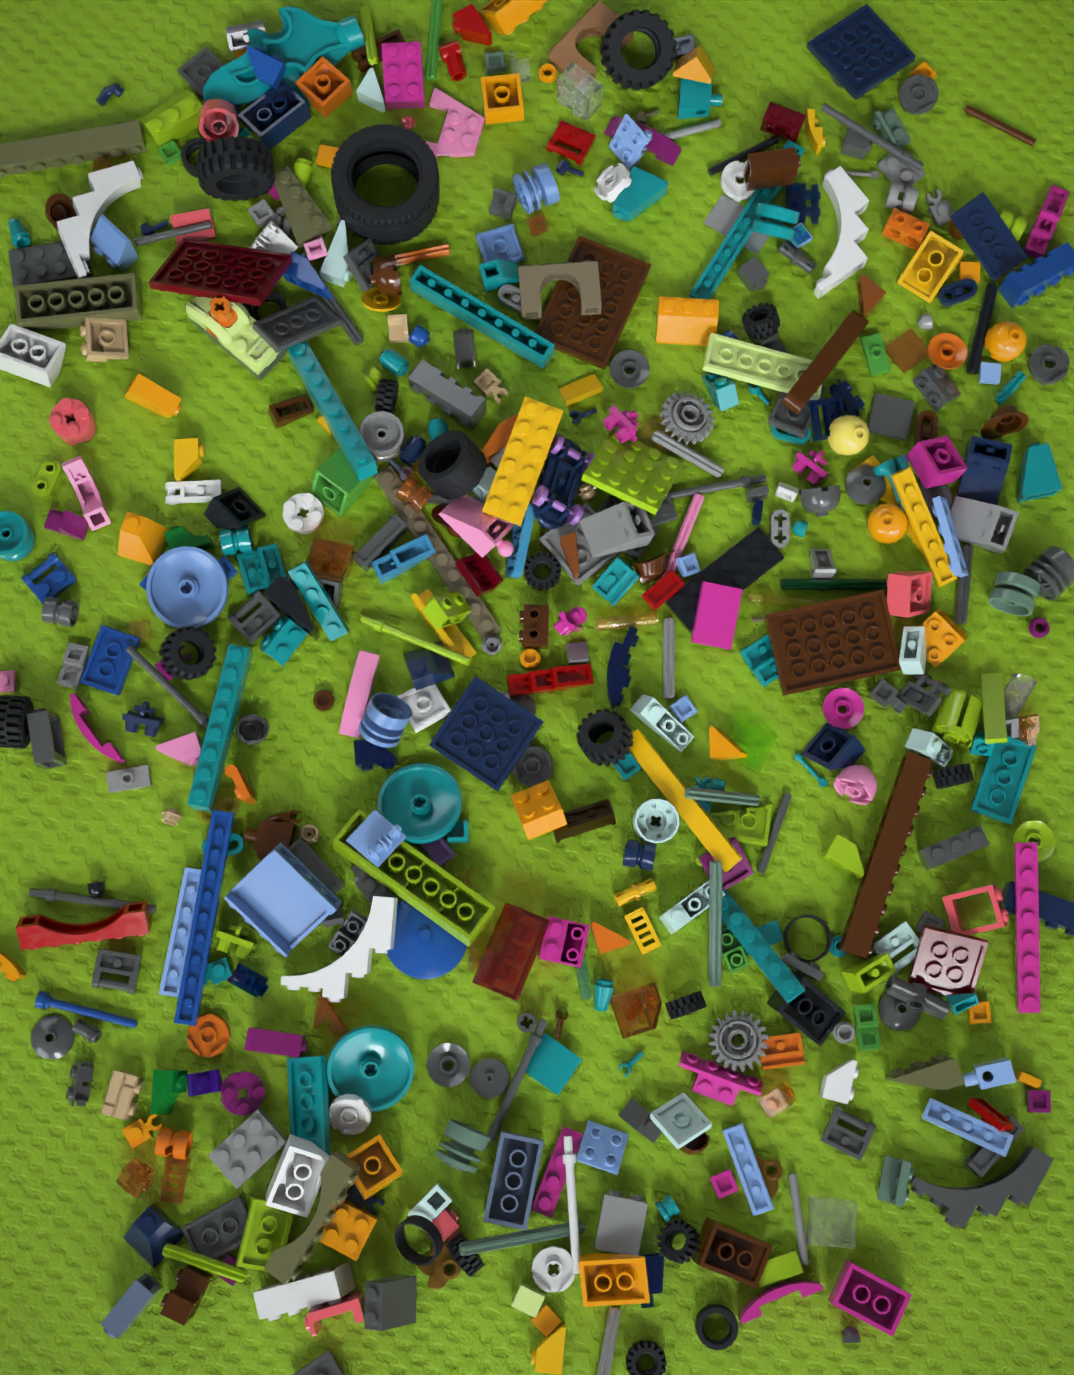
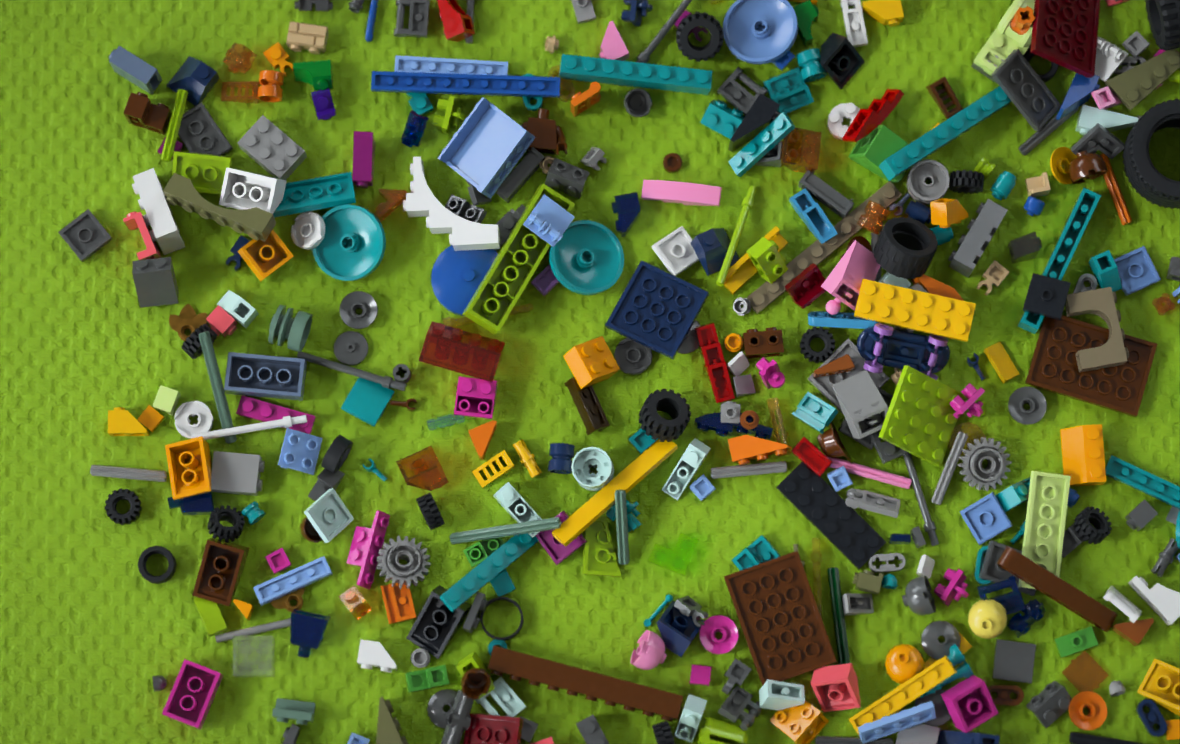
camera: 85 degrees right, 0 degrees up
(209, 1036) = (363, 103): orange tile -> none
(229, 1093) = (318, 148): magenta plate -> none
(302, 480) = (870, 118): none -> red slope
(307, 784) = (592, 157): none -> light grey tile
(327, 815) = (566, 178): none -> dark grey bracket
(349, 1229) = (212, 242): light orange brick -> none
(385, 720) = (657, 216): medium blue wheel -> none
(418, 419) = (947, 212): none -> light orange slope
(431, 1230) = (199, 292): black tyre -> none
(459, 833) = (564, 297): teal panel -> none
(522, 330) = (1046, 296): none -> black plate
(554, 655) = (738, 364): none -> white slope
(602, 993) = (433, 439): teal cone -> none
(608, 668) = (730, 412): none -> light grey bracket
(612, 1105) = (337, 454): none -> black tyre
(620, 654) = (745, 424): none -> dark orange plate
(647, 651) = (749, 447): none -> orange slope
(716, 534) = (873, 502): none -> light grey hinge
(716, 615) = (793, 508): dark pink tile -> none
(722, 746) = (670, 525): light orange slope -> none
(743, 424) = (986, 518): none -> medium blue plate
(752, 1310) = (196, 637): dark pink slope -> none
(774, 833) = (595, 581): dark grey bar -> none
(774, 1228) = (245, 608): none -> light orange slope
(799, 549) = (867, 581): none -> olive brick
(806, 1157) = (307, 630): none -> clear blue torso
(814, 733) = (691, 608): none -> dark grey plate
(836, 308) = (1122, 603): none -> white plate
(844, 855) = (581, 645): lime slope -> none
(844, 1139) = (326, 665): dark grey plate -> none
(883, 733) = (700, 675): none -> dark pink slope
(883, 973) = (475, 683): none -> reddish brown hair

